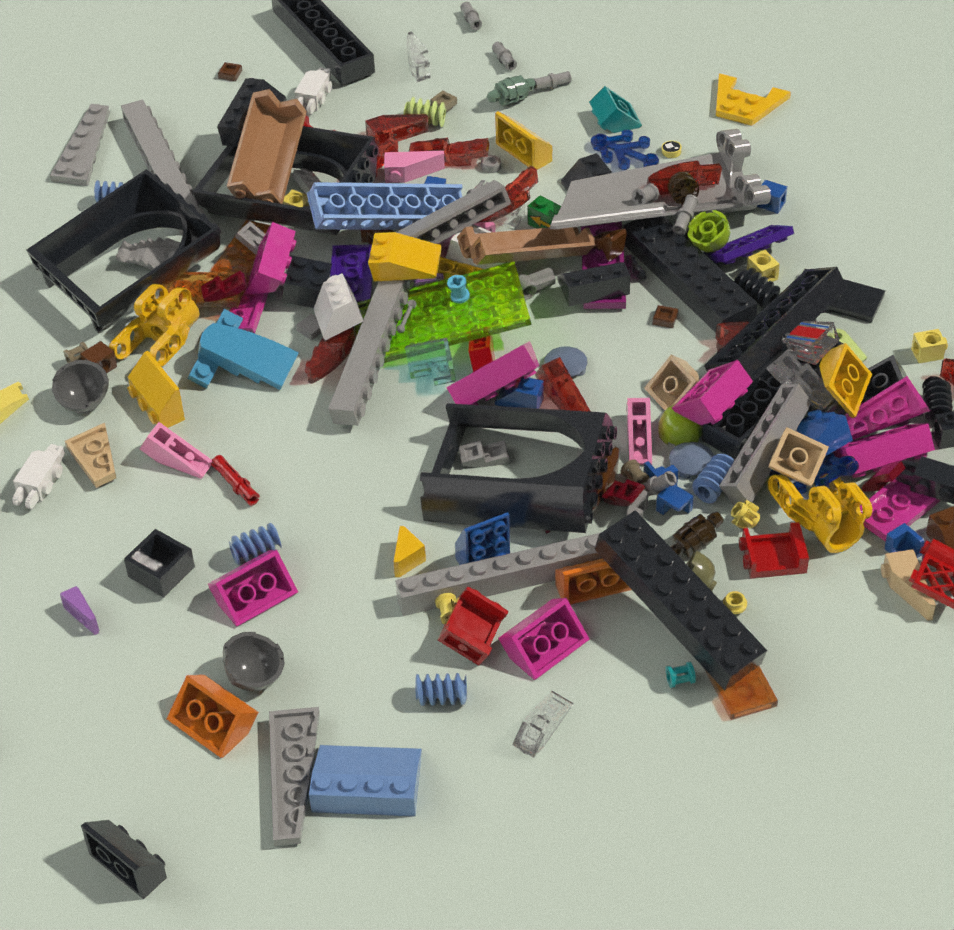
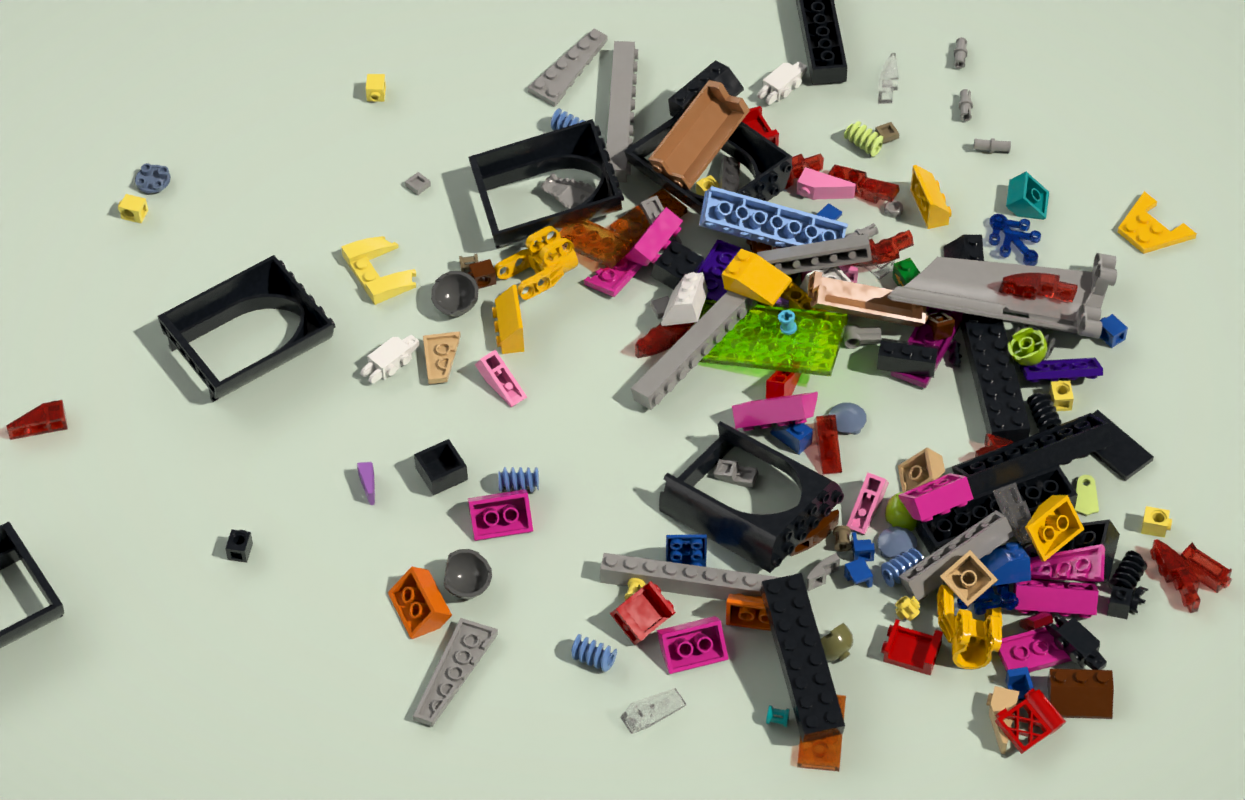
camera: 25 degrees right, 5 degrees up
(124, 856) = (306, 683): black slope -> none
(220, 289) = (607, 249): dark red slope -> none
(230, 71) = (725, 36): reddish brown tile -> none
(240, 485) = (535, 425): red pin -> none
(241, 353) = (591, 311): dark azure slope -> none
(365, 780) = (502, 698): medium blue slope -> none
(398, 126) = (831, 144): clear red slope -> none
(408, 552) = (629, 533): yellow slope -> none
(411, 304) = (747, 319): light grey hinge -> none
(431, 359) = (739, 375): clear light blue panel -> none
(511, 90) = (949, 143): sand green piece -> none
(622, 493) = (820, 550): dark red slope -> none
(648, 193) = (994, 292): light grey bush -> none
(657, 484) = (850, 554): light grey pin -> none
(665, 316) = (954, 408): reddish brown tile -> none
(671, 149) = (1056, 251): tile -> none
(677, 191) = (1025, 302): dark brown wheel -> none
(685, 214) = (1015, 324): light grey pin -> none
(696, 534) = (856, 609): dark brown piece -> none
(735, 602) = (856, 672): light yellow plate -> none
(811, 340) = (1044, 481): clear torso -> none

